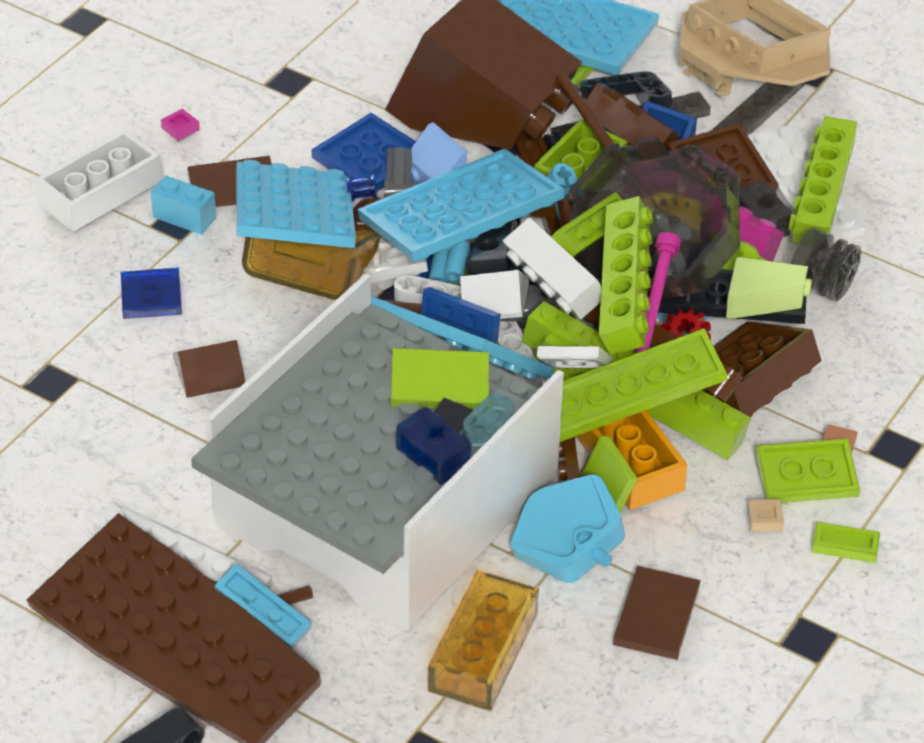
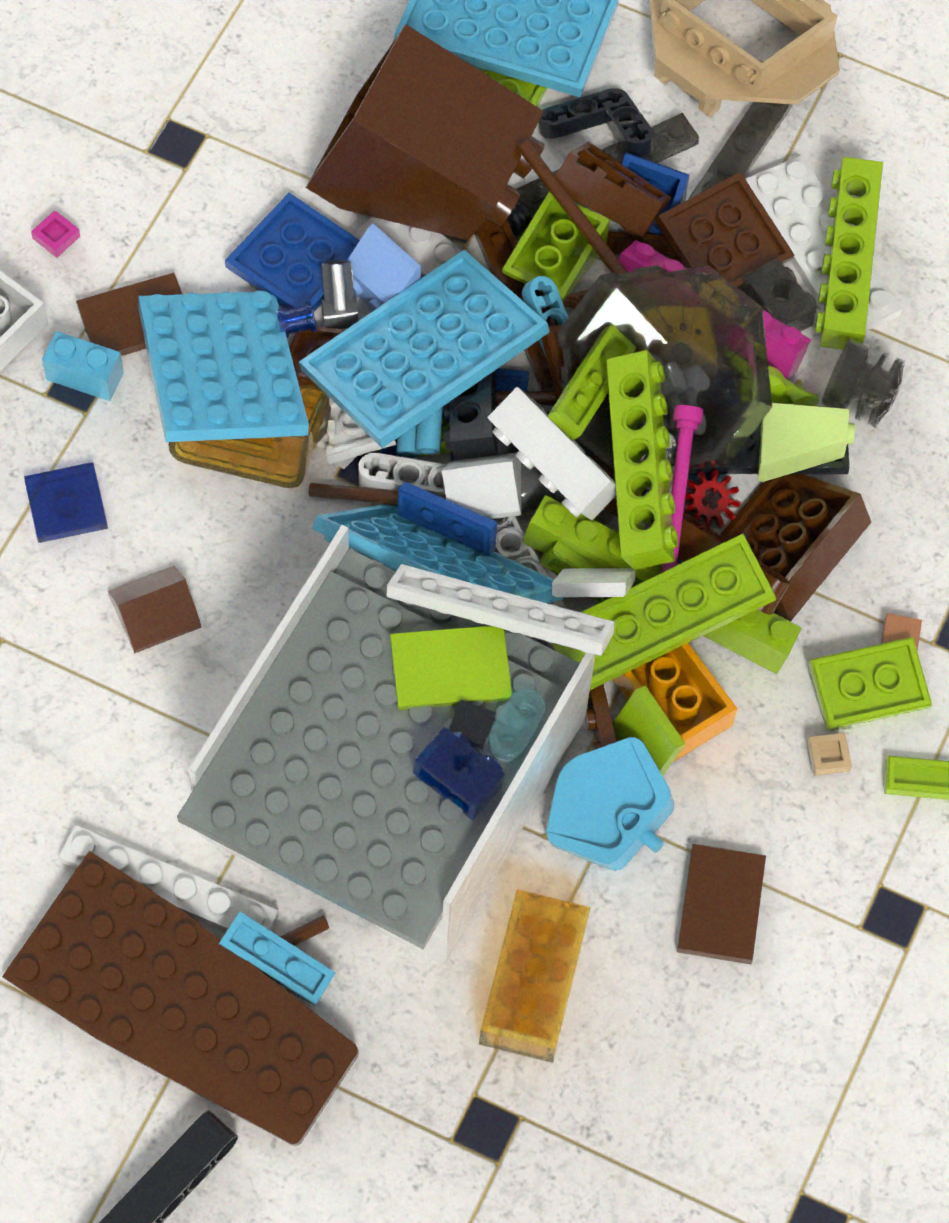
camera: 10 degrees left, 20 degrees up
(477, 336) = (501, 609): none -> white plate

